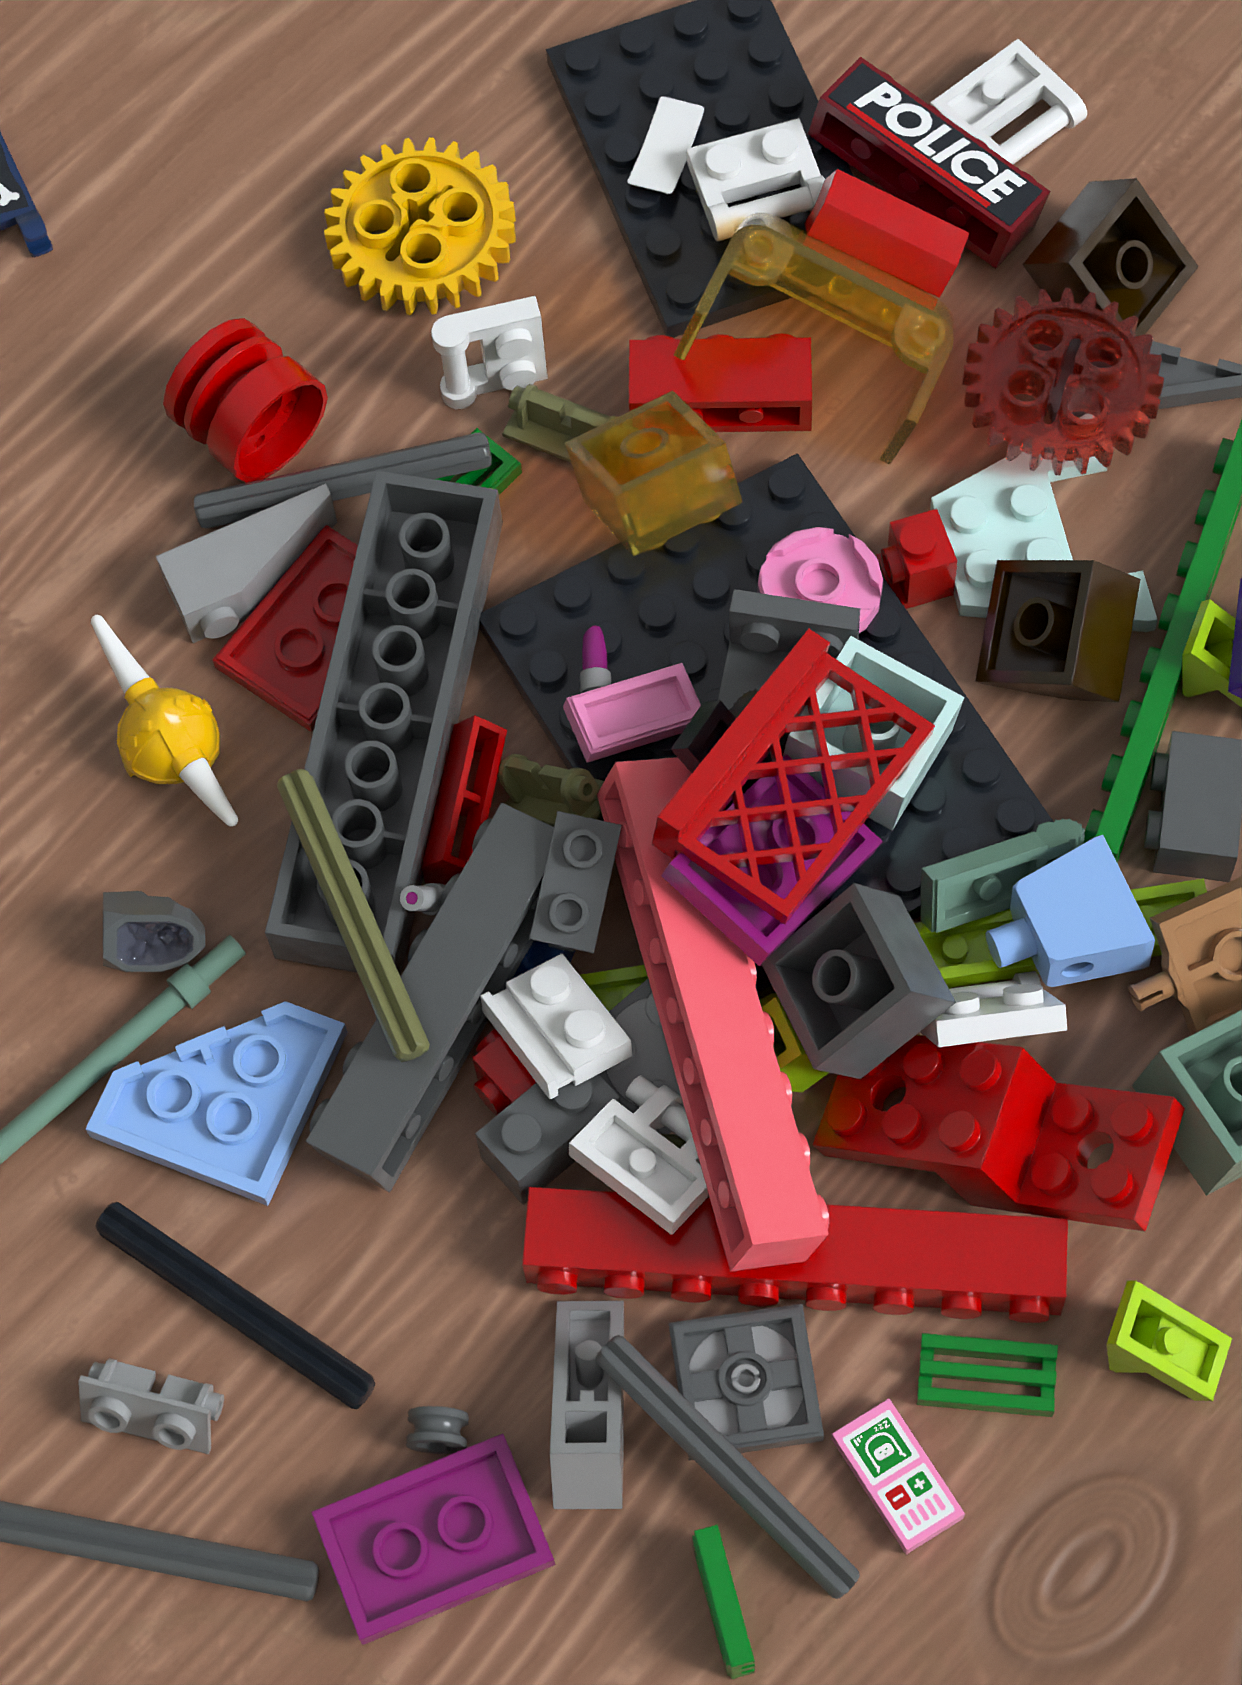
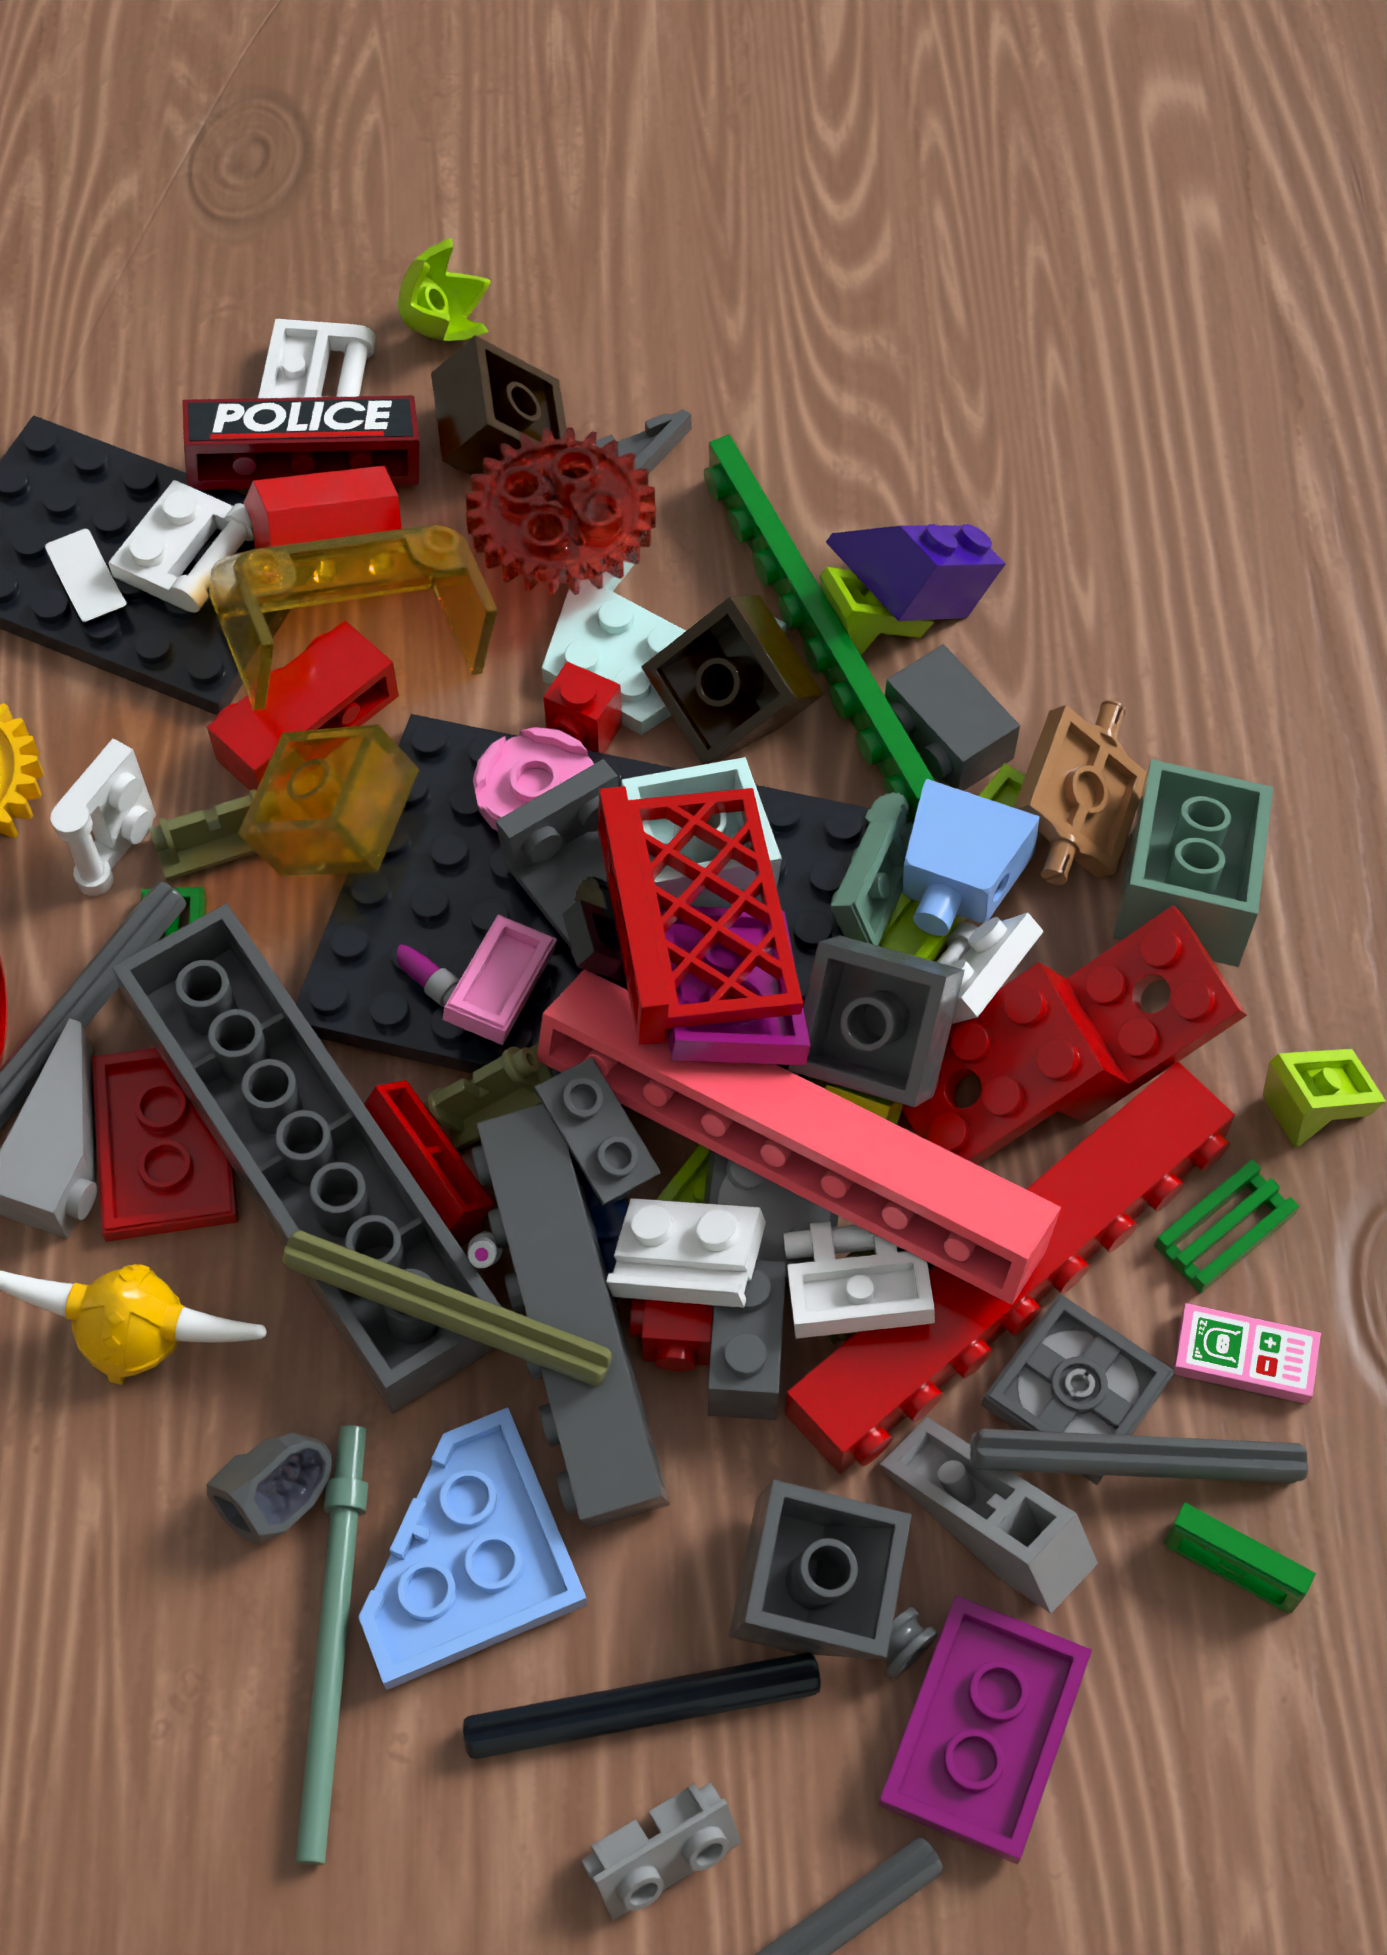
camera: 50 degrees left, 5 degrees down
(424, 1328) = (820, 1574): none -> dark grey slope
(1176, 123) = (439, 300): none -> lime piece

